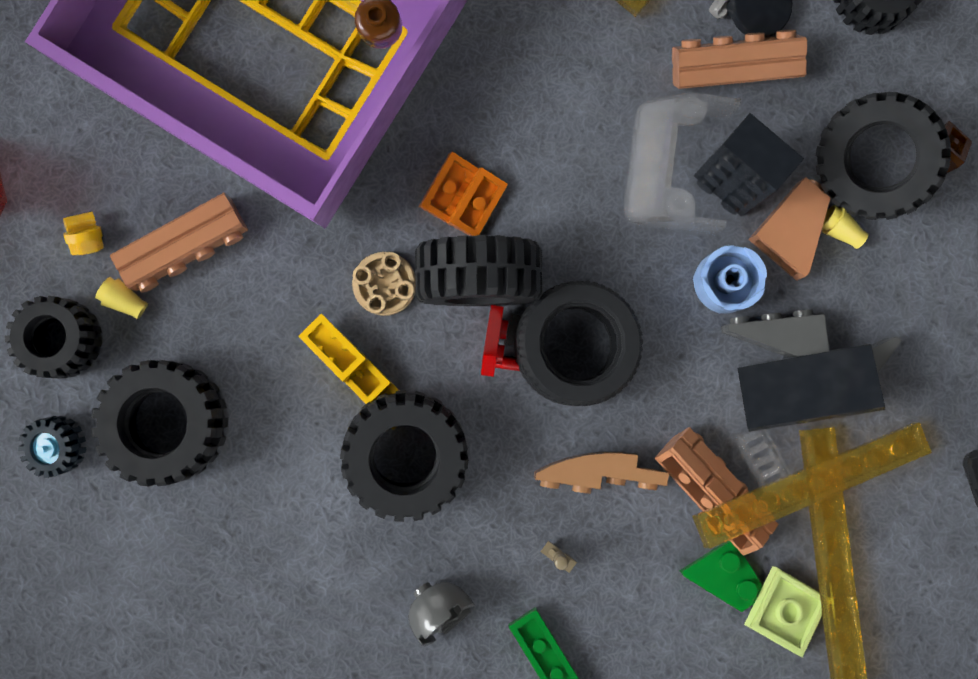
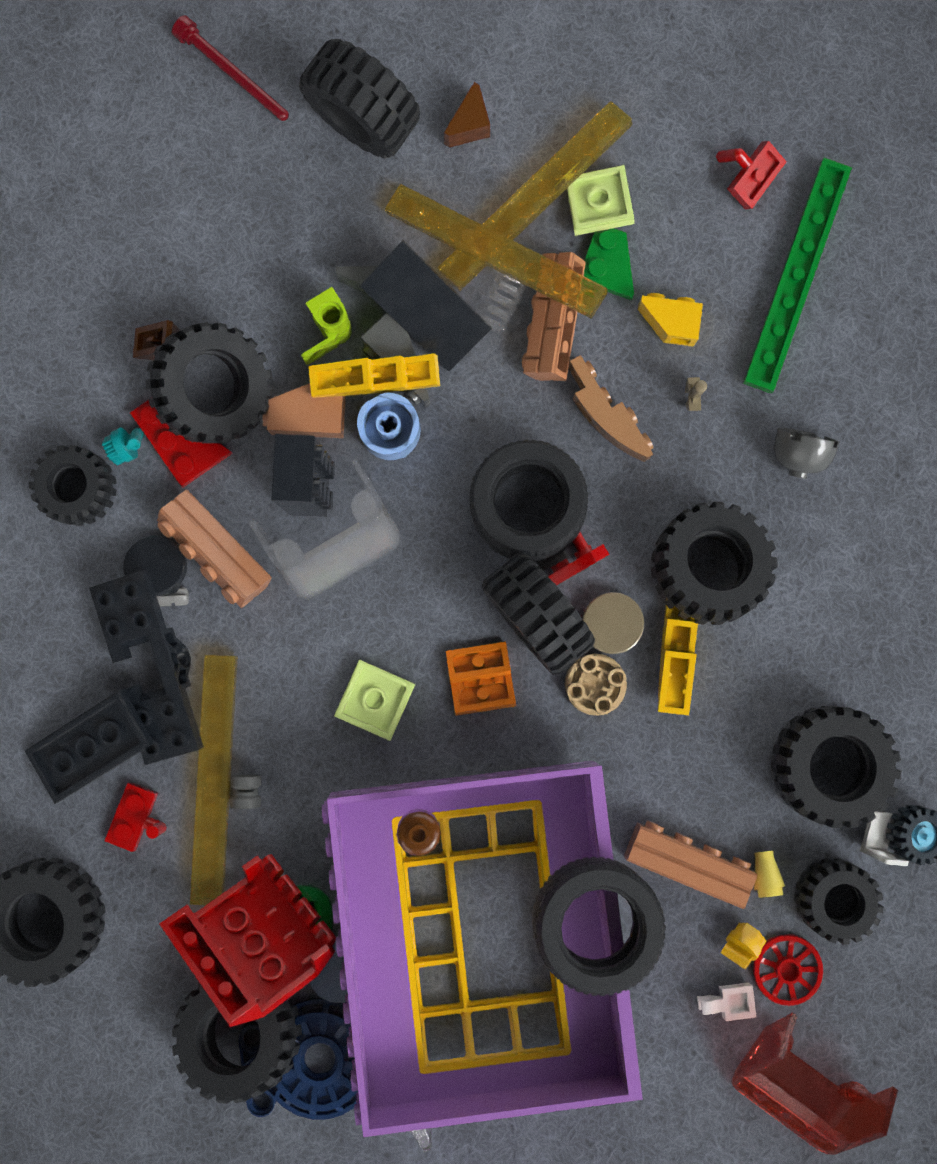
camera: 120 degrees left, 0 degrees up
(36, 256) = (788, 969): none -> red wheel
(45, 191) = (734, 1002): none -> white plate
(74, 407) = (875, 840): none -> white bracket
(142, 83) = (623, 967): none -> black tyre
(422, 336) = (614, 622): none -> dark tan tile
(513, 96) = (374, 700): none -> yellowish green plate
(636, 590) = (672, 319): none -> yellow slope
(783, 298) = (374, 375): none -> yellow slope
(831, 95) = (183, 458): none -> red wing
(843, 227) = (282, 374): light yellow cone -> none
(857, 302) = (325, 310): none -> lime piece
(882, 54) = (121, 446): none -> teal piece
(943, 554) = (469, 121): none -> reddish brown slope

